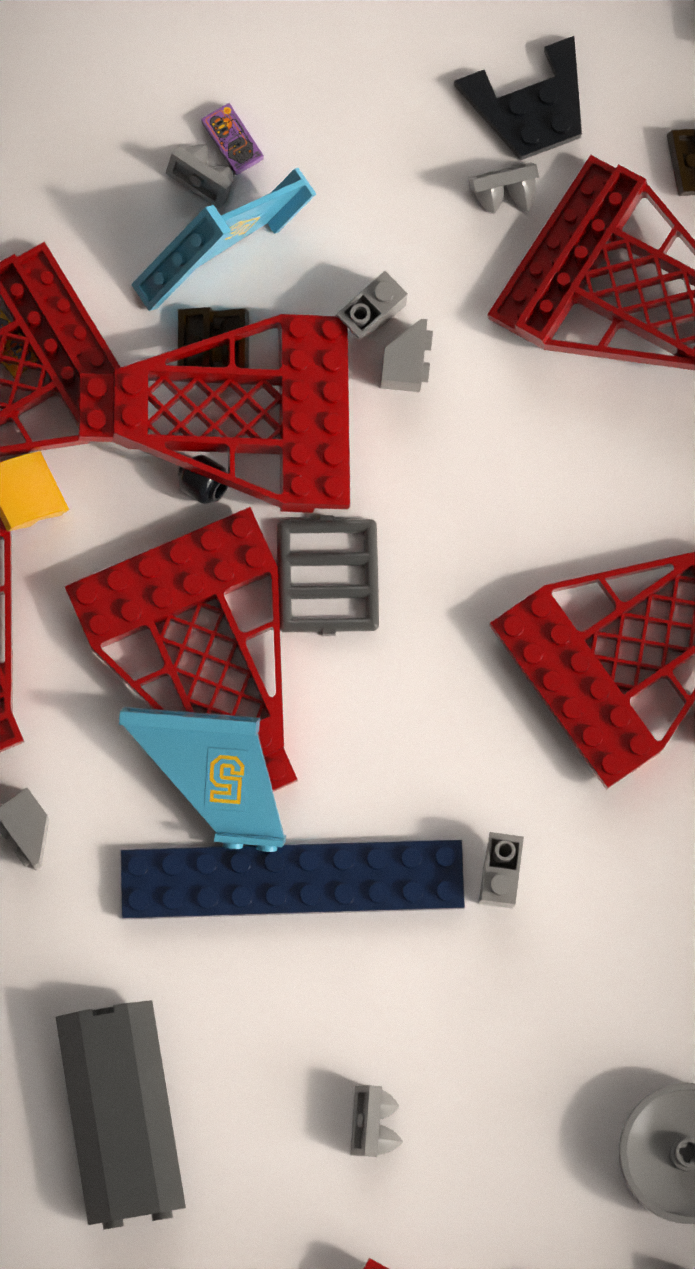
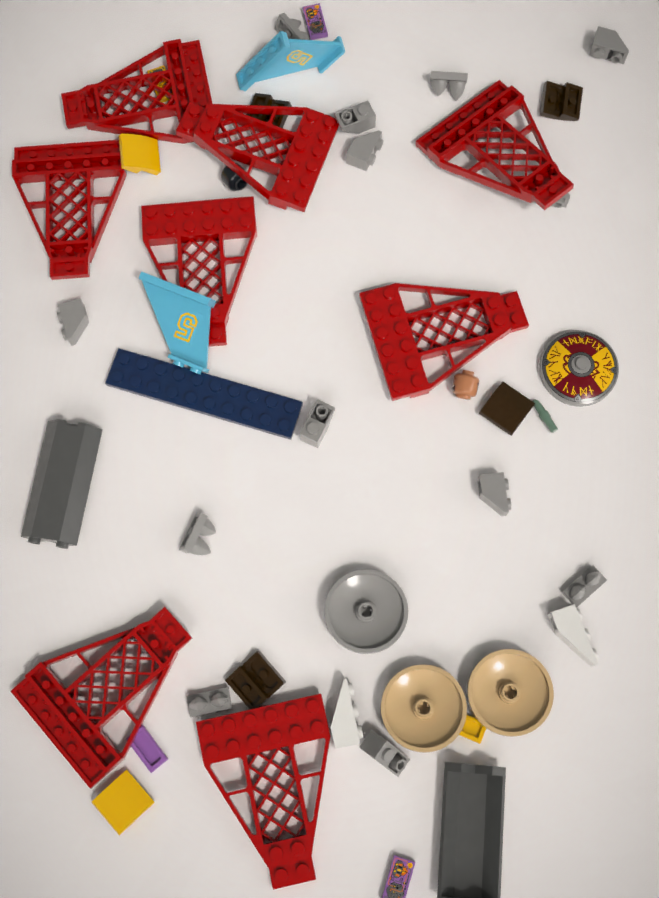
camera: 30 degrees right, 5 degrees down
(369, 591) = (264, 231): dark grey bar -> none
(537, 115) = (477, 55): black wing -> none

